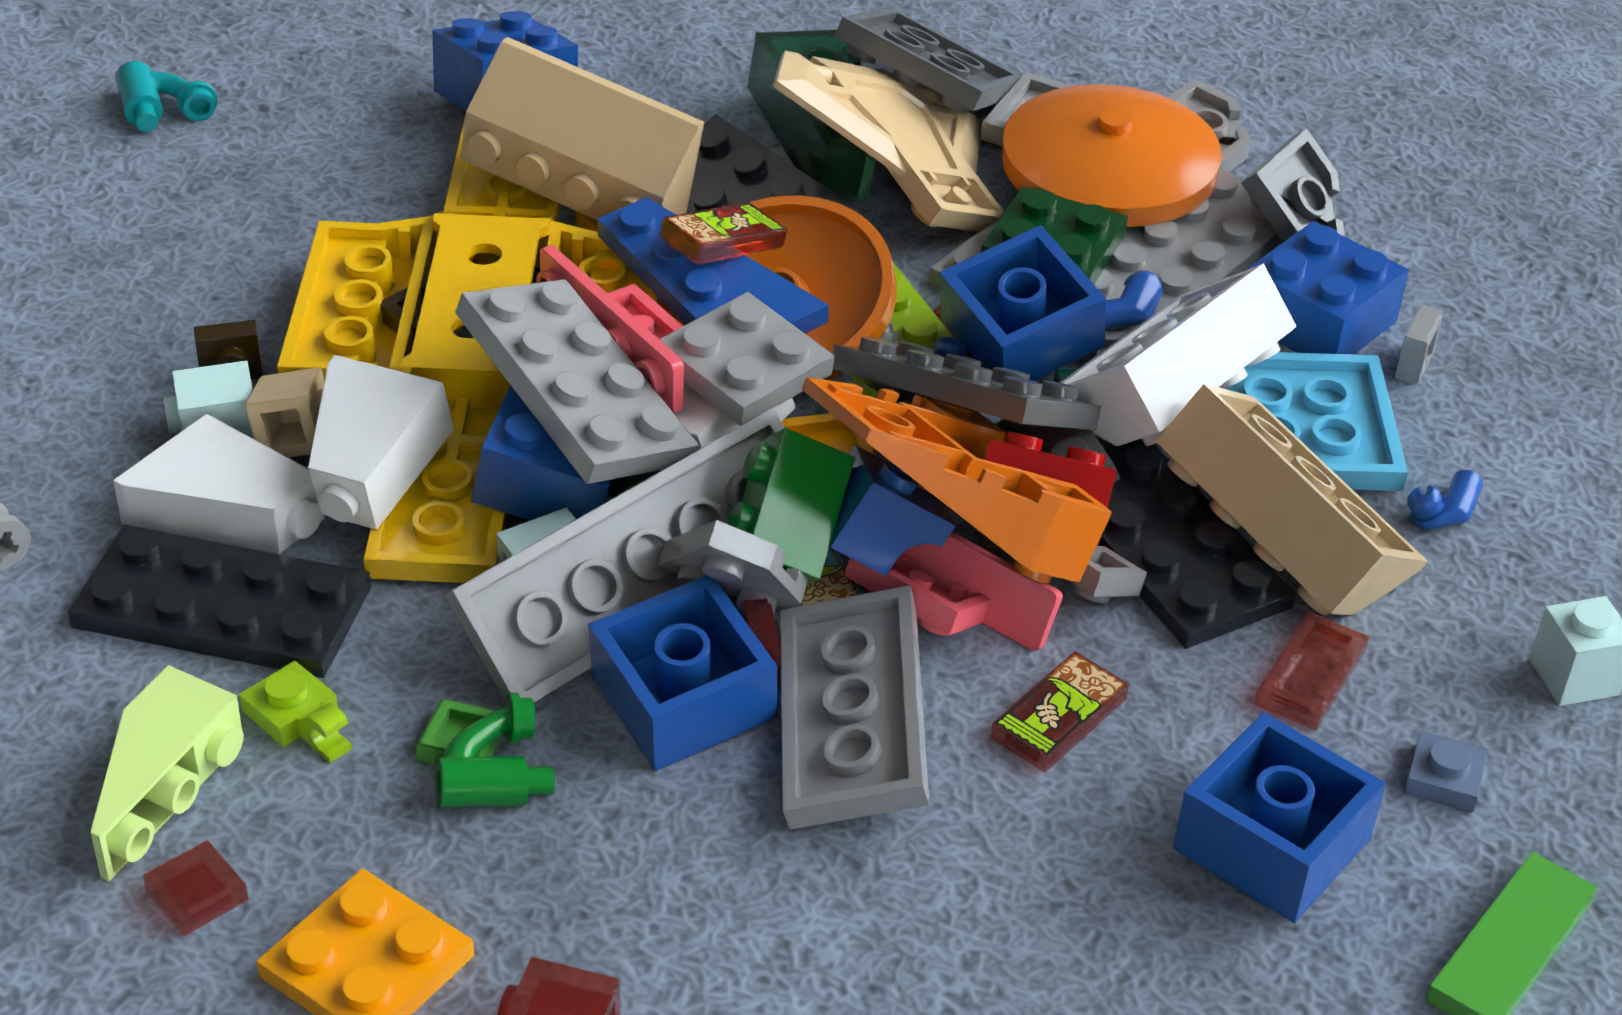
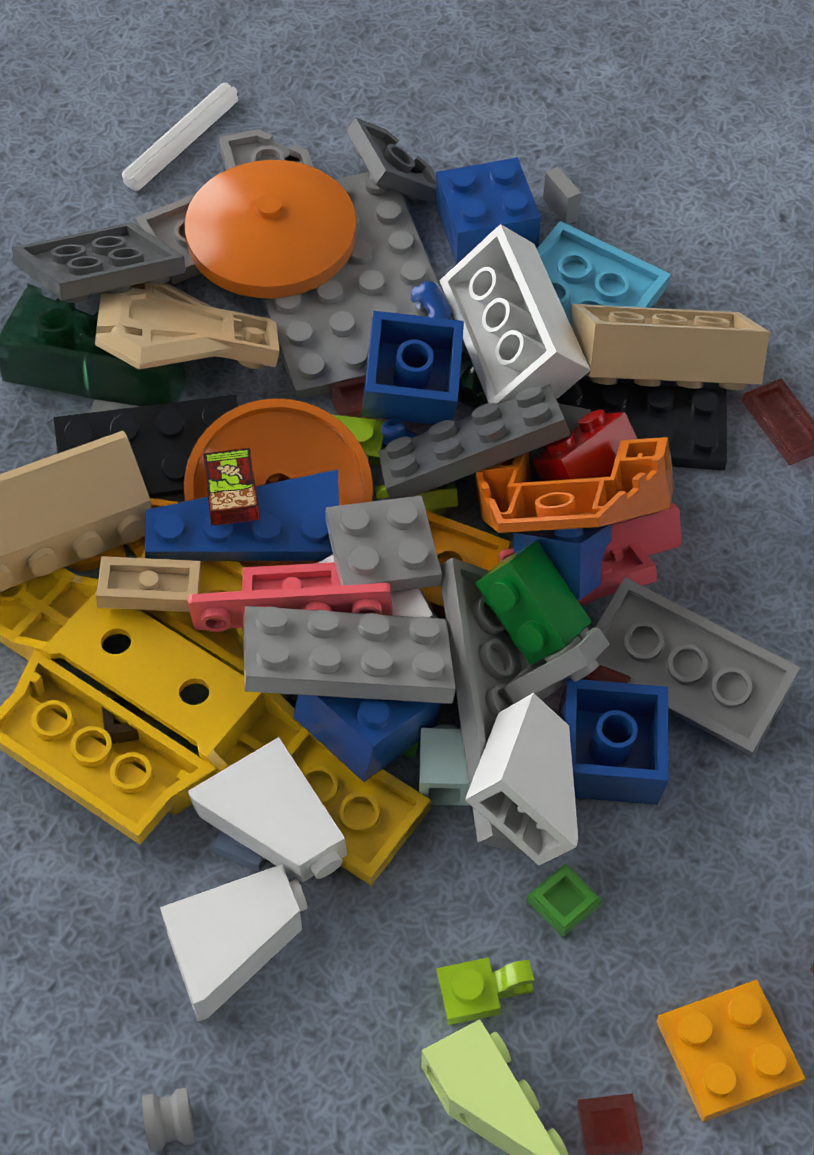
camera: 55 degrees left, 15 degrees up
(213, 391) = (130, 900): light aqua brick -> none
(221, 600) = (332, 990): black plate -> none
(229, 344) = (73, 863): dark brown plate -> none
(286, 410) = (187, 849): tan brick -> none
(492, 781) = (623, 908): green plant -> none
(545, 582) = (528, 780): none -> white slope
(552, 219) = (147, 583): none -> tan plate
(1059, 711) = (743, 563): tile -> none
(1082, 230) = (333, 309): dark green plate -> none
(1174, 63) = (179, 137): none -> white axle
(1454, 508) = (700, 271): blue arm -> none

